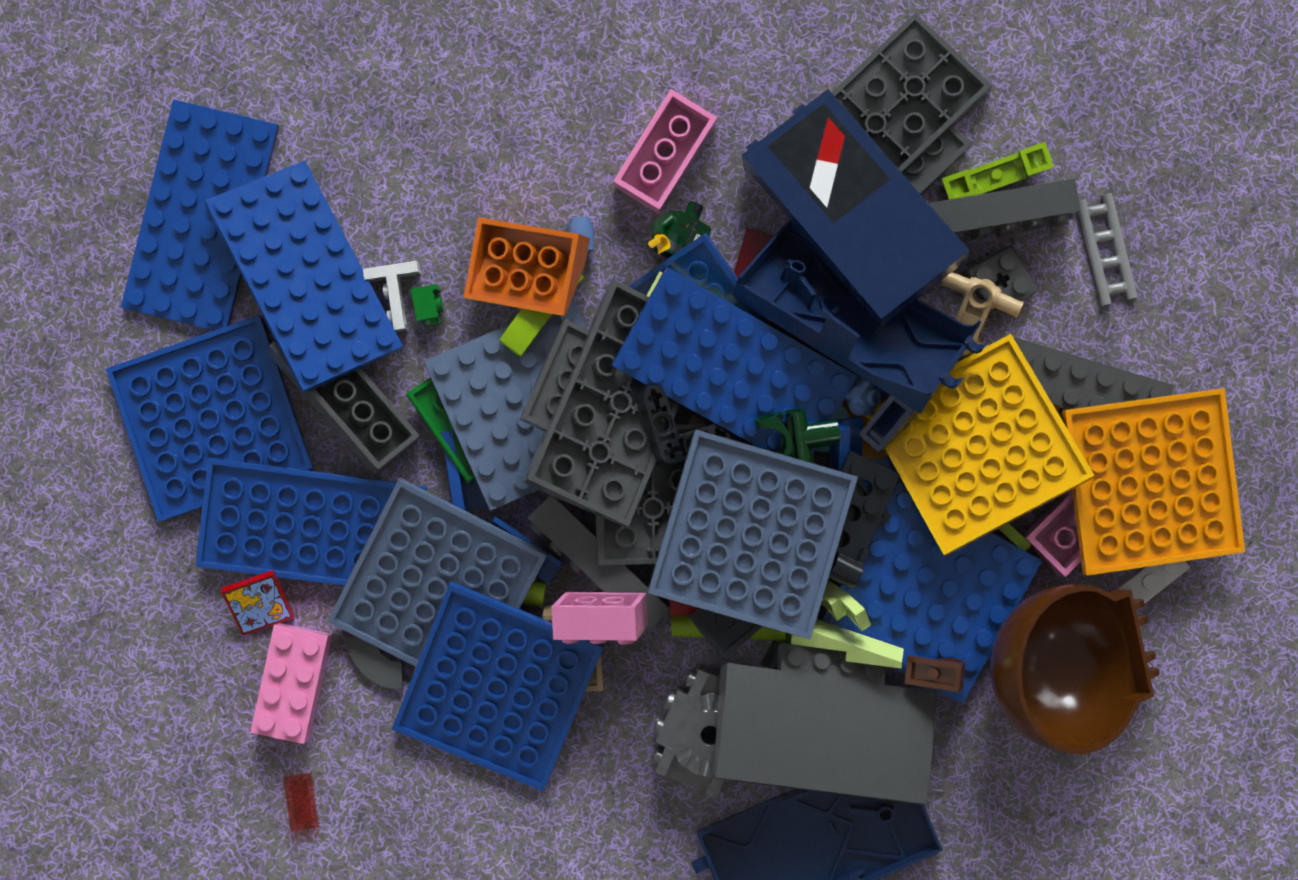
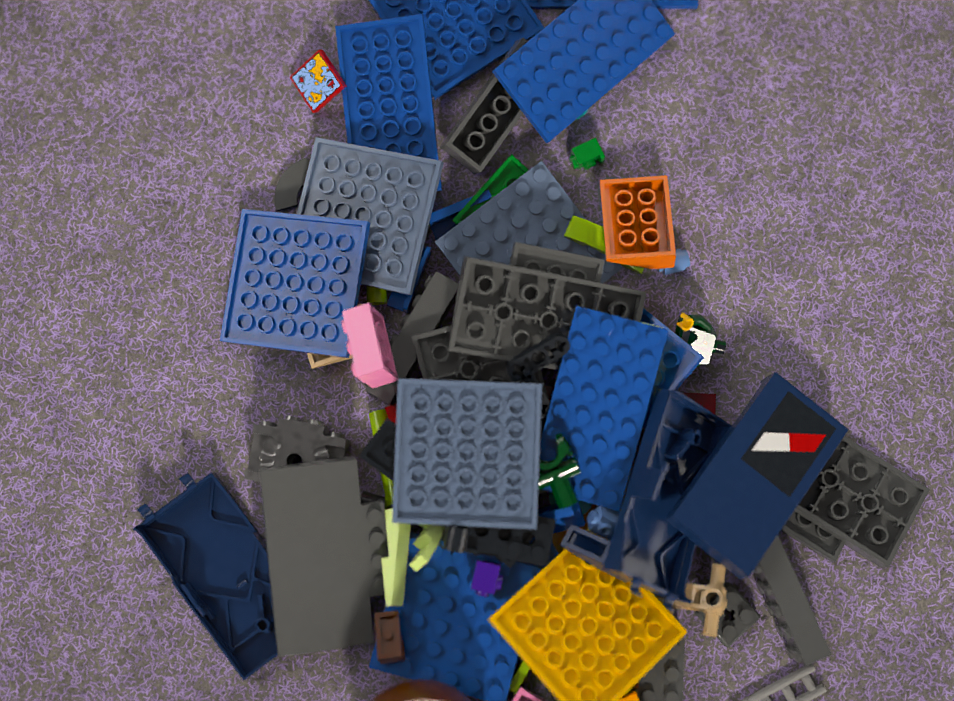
camera: 70 degrees right, 5 degrees down
(291, 683) = (260, 122): bright pink brick -> none
(301, 801) = (169, 154): clear red tile -> none
(393, 290) = (592, 125): white bracket -> none
(665, 151) = (760, 312): bright pink brick -> none
(896, 546) = (486, 578): none -> dark purple brick
(999, 172) = (817, 592): lime slope -> none

